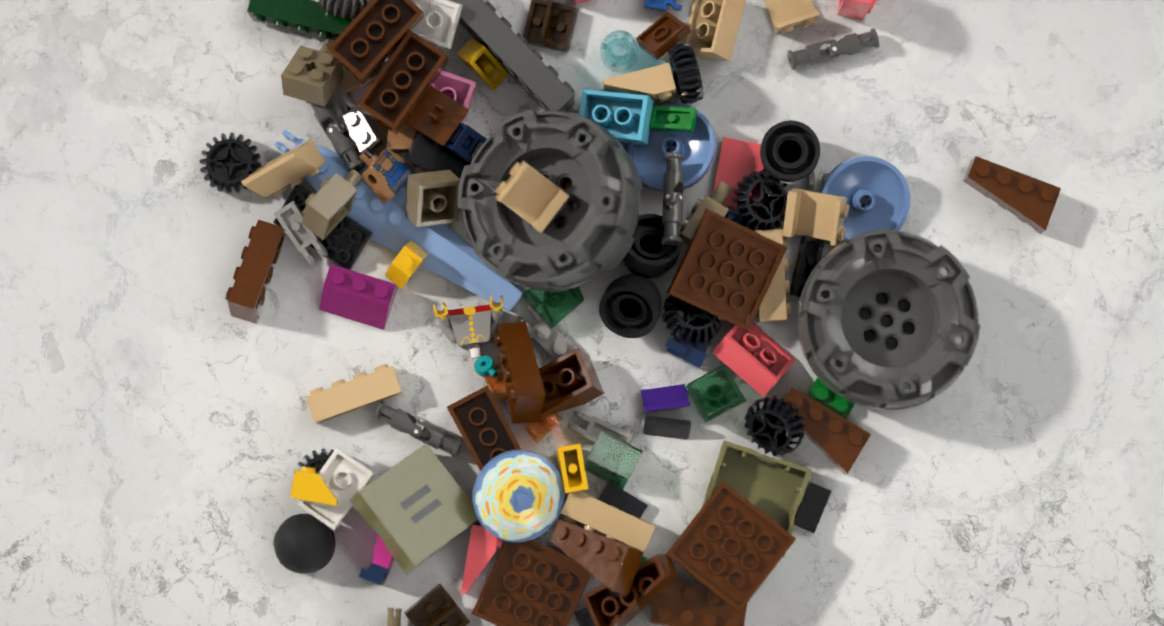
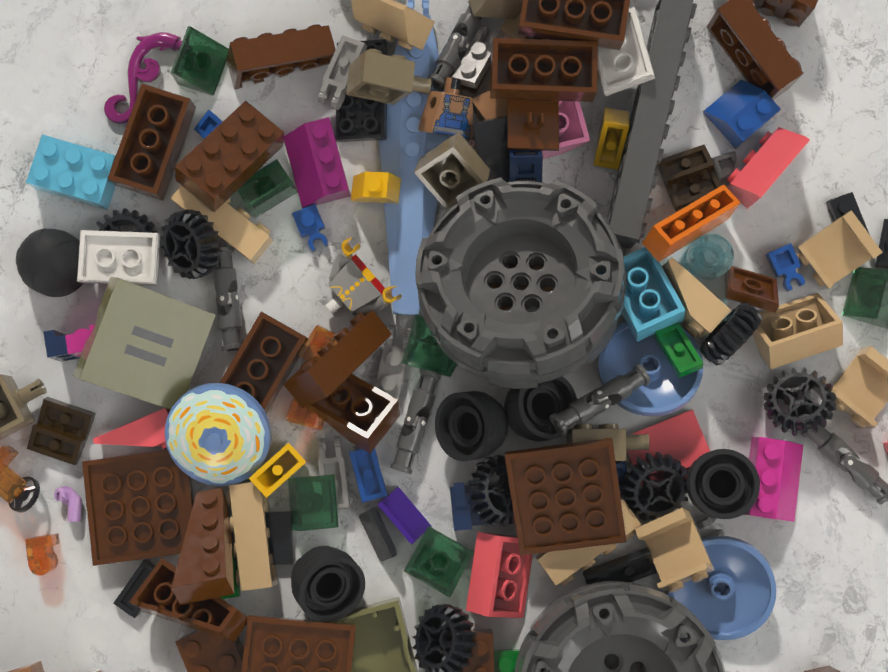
camera: 55 degrees right, 0 degrees up
(194, 391) = (134, 72): none -> magenta plant
(221, 335) = (199, 62): none -> clear green slope
(245, 484) = (72, 172): none -> medium azure brick
(261, 409) = (152, 142): none -> reddish brown brick
(277, 359) = (207, 124): none -> blue plate
(312, 357) = (229, 156): none -> reddish brown brick
(312, 487) = (101, 234): yellow slope -> none
(350, 346) = (267, 189): none -> clear green slope
(360, 428) = (190, 244): none -> black gear
(400, 331) = (309, 224): none -> blue plate
(485, 366) = (325, 324): teal piece -> none
(531, 195) = (512, 258): tan panel -> none
(586, 48) = (690, 223): none -> orange brick
(597, 341) = (422, 402): none -> dark grey piece
(618, 406) = (368, 475): none -> blue plate
(679, 483) = (327, 583): none -> black piece
(758, 44) = (816, 412): none -> black gear
(811, 106) = (779, 475): none -> dark pink slope

